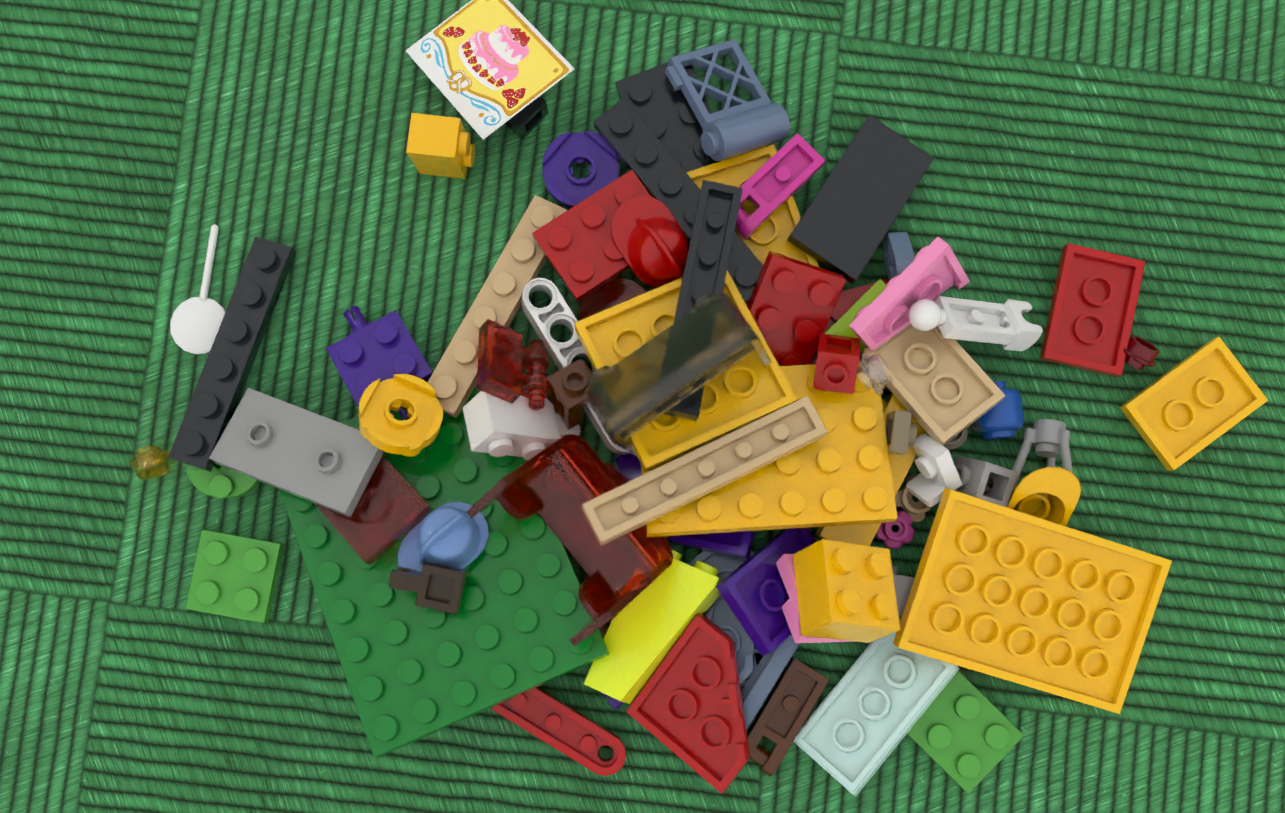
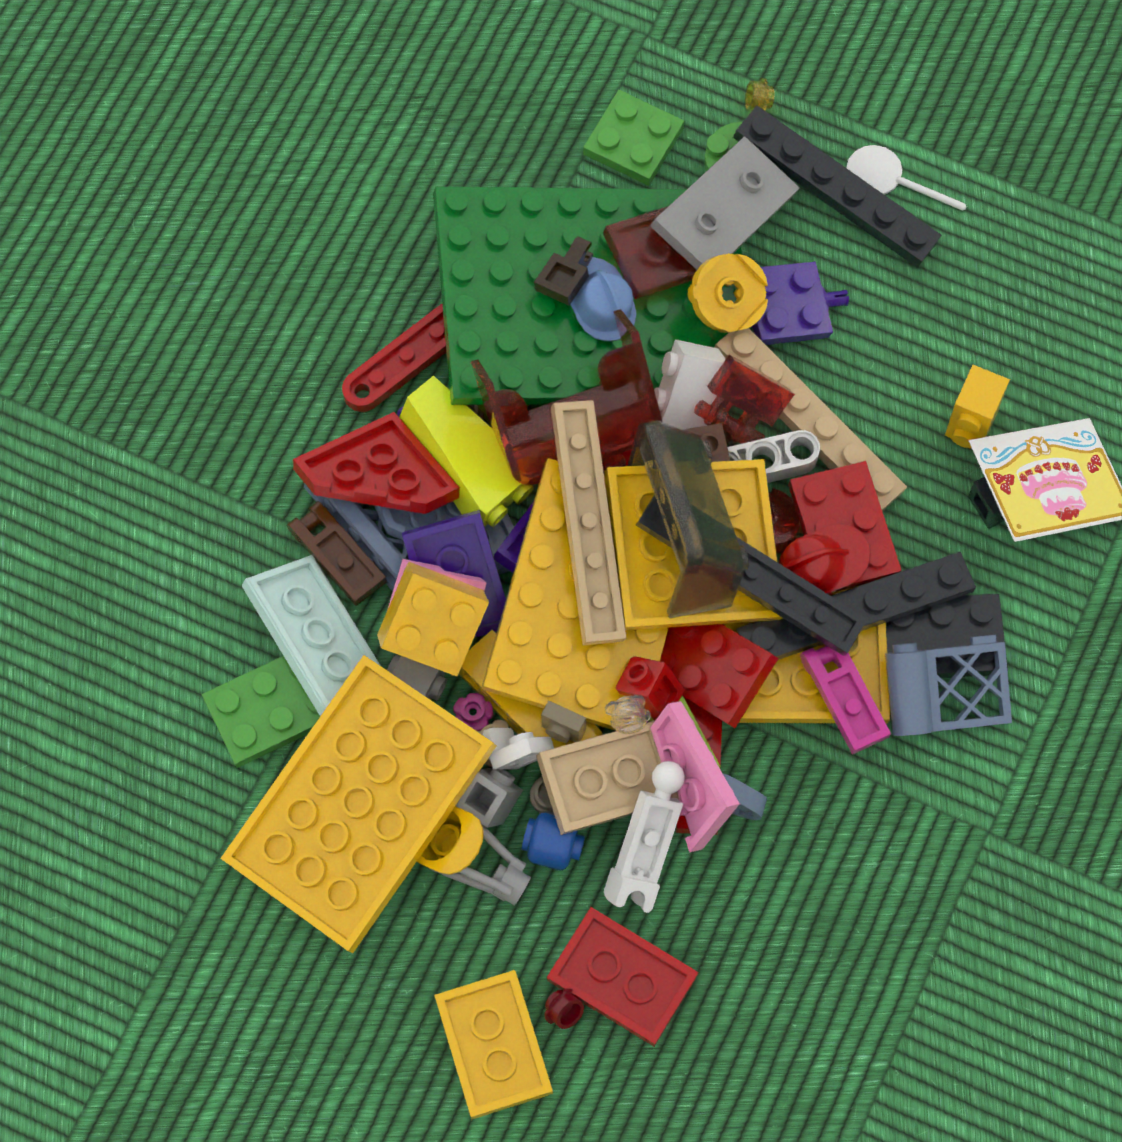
camera: 110 degrees right, 15 degrees down
(578, 148) = (923, 515): dark purple plate -> none
(860, 199) = (808, 783): black tile -> none

